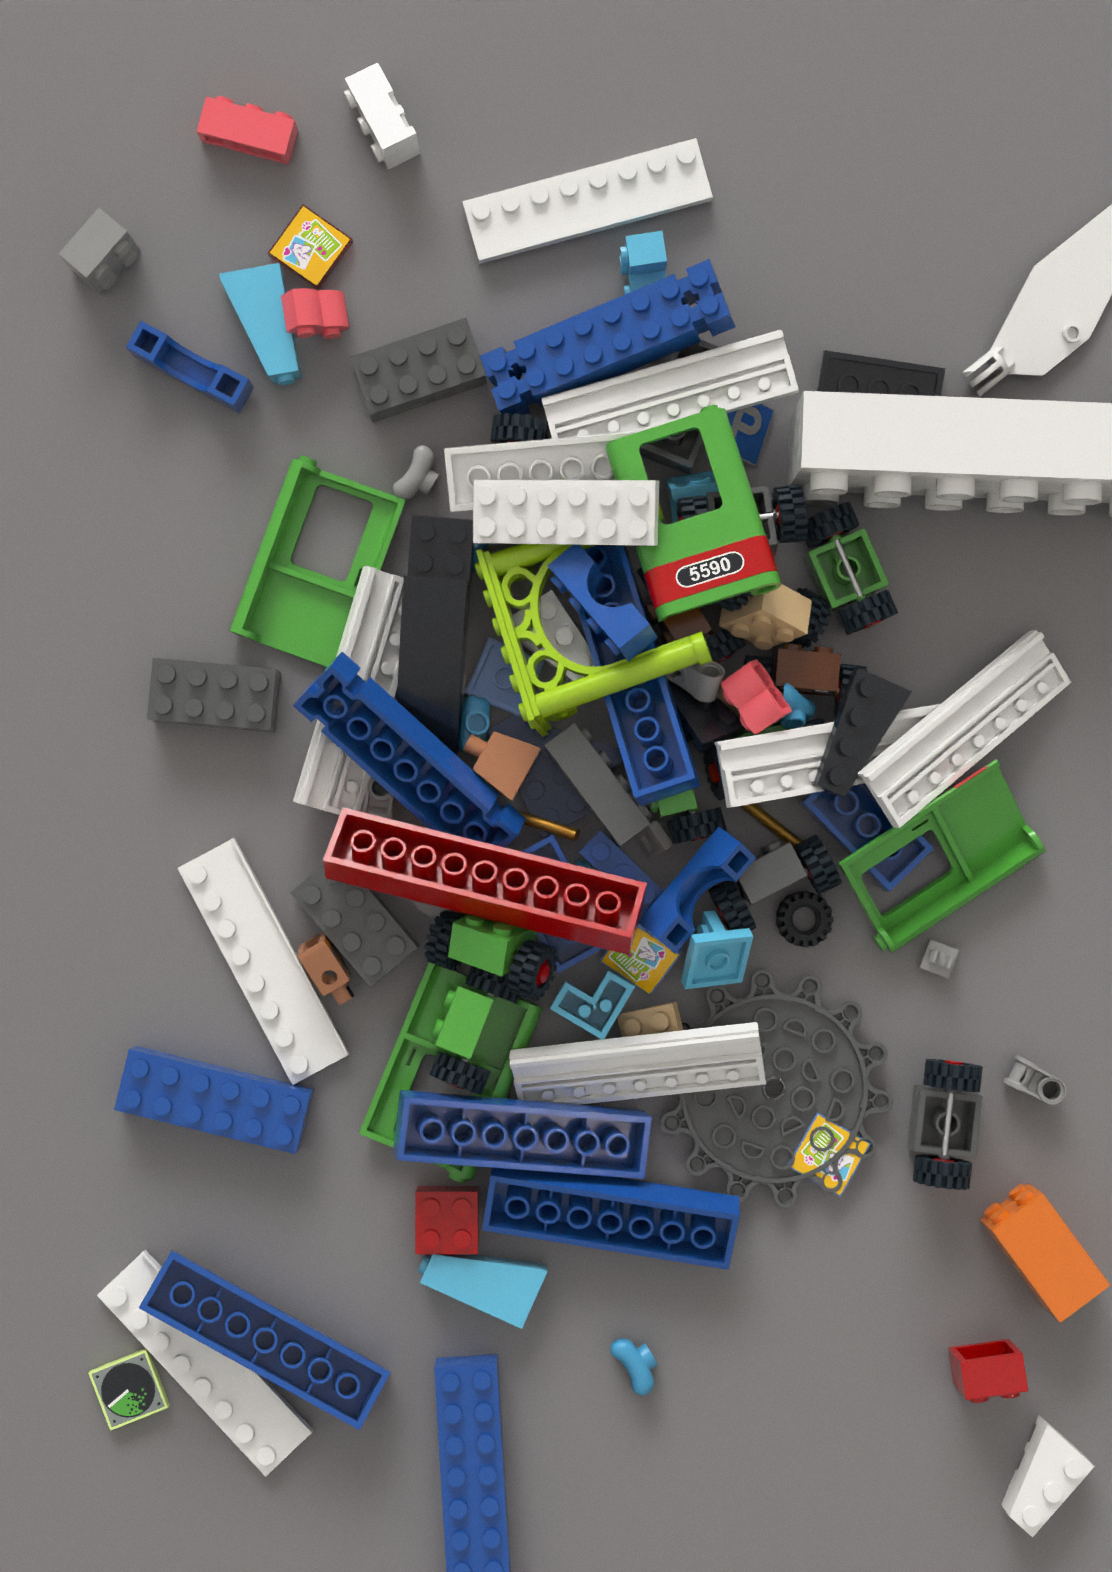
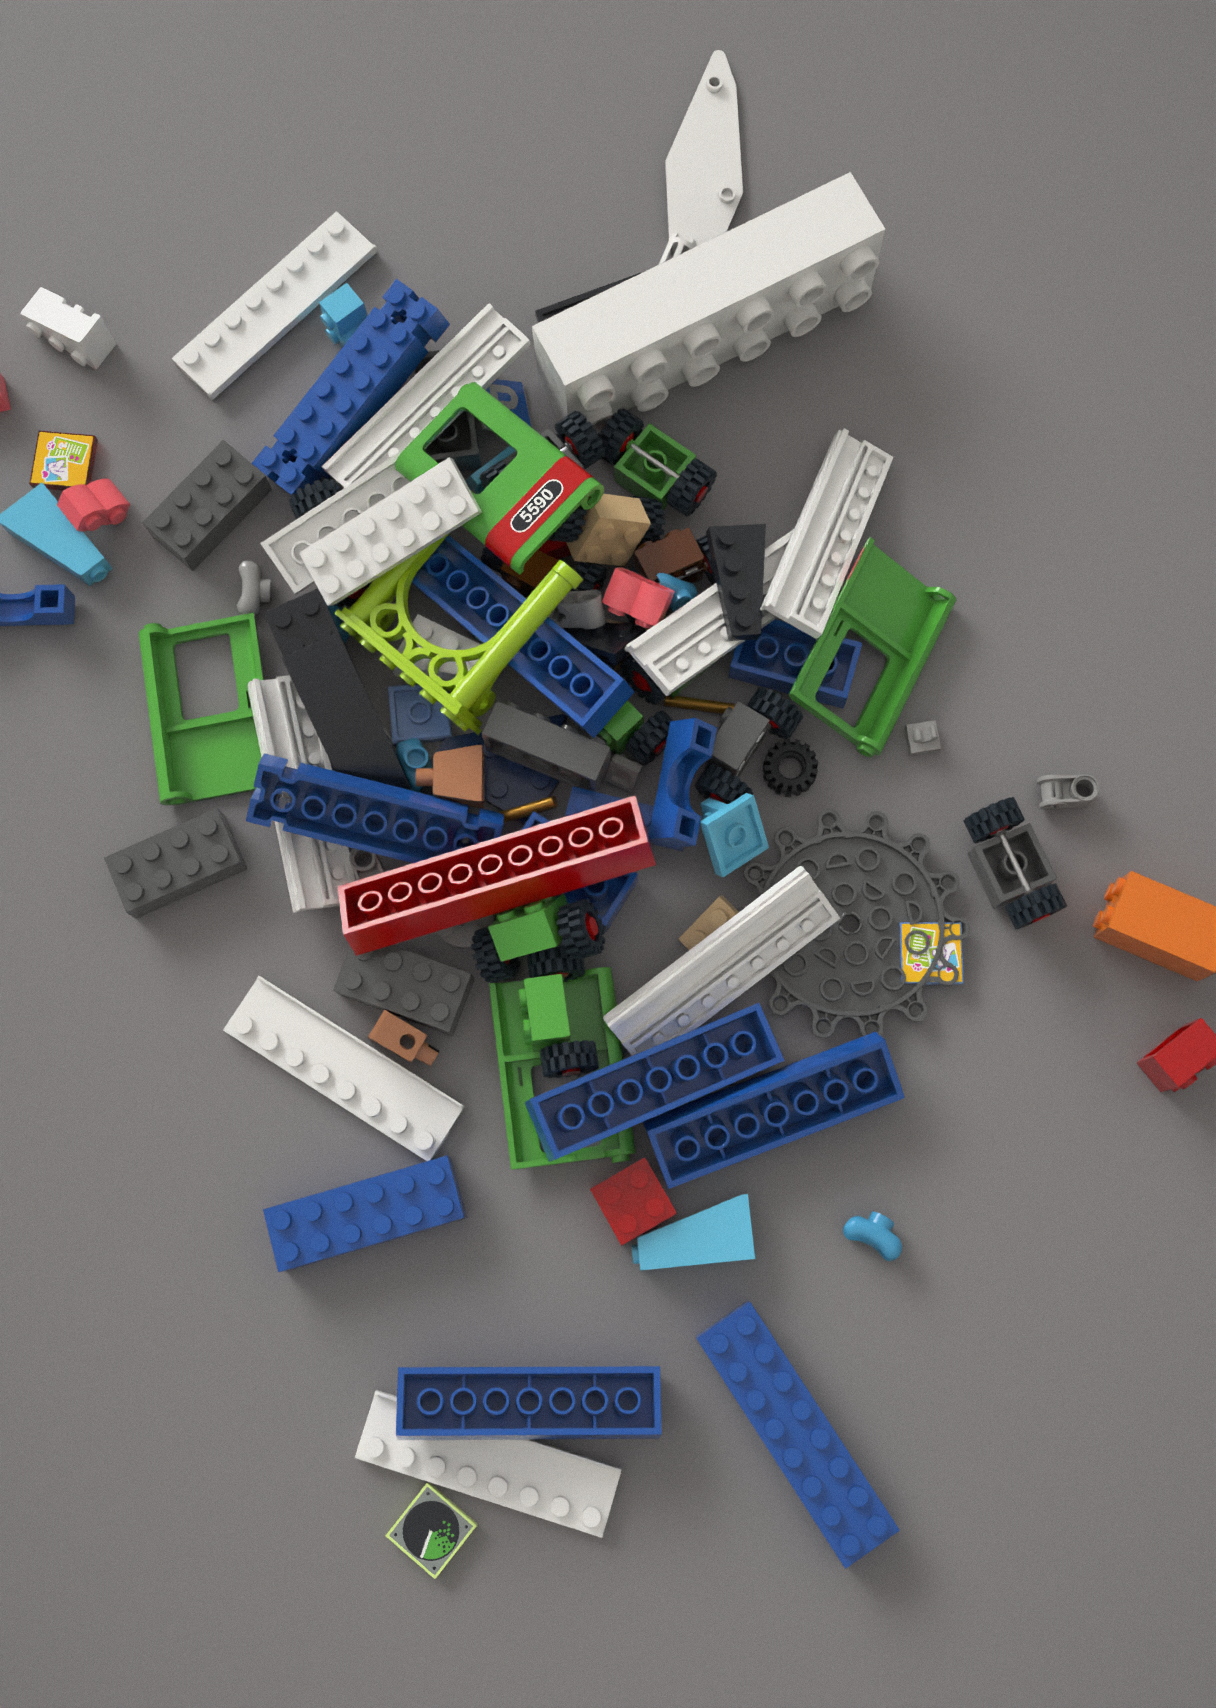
camera: 25 degrees left, 10 degrees down
(595, 1011) = (653, 945): medium azure brick -> none
(623, 625) = (491, 593): blue arch -> none
(647, 961) = (673, 878): tile -> none

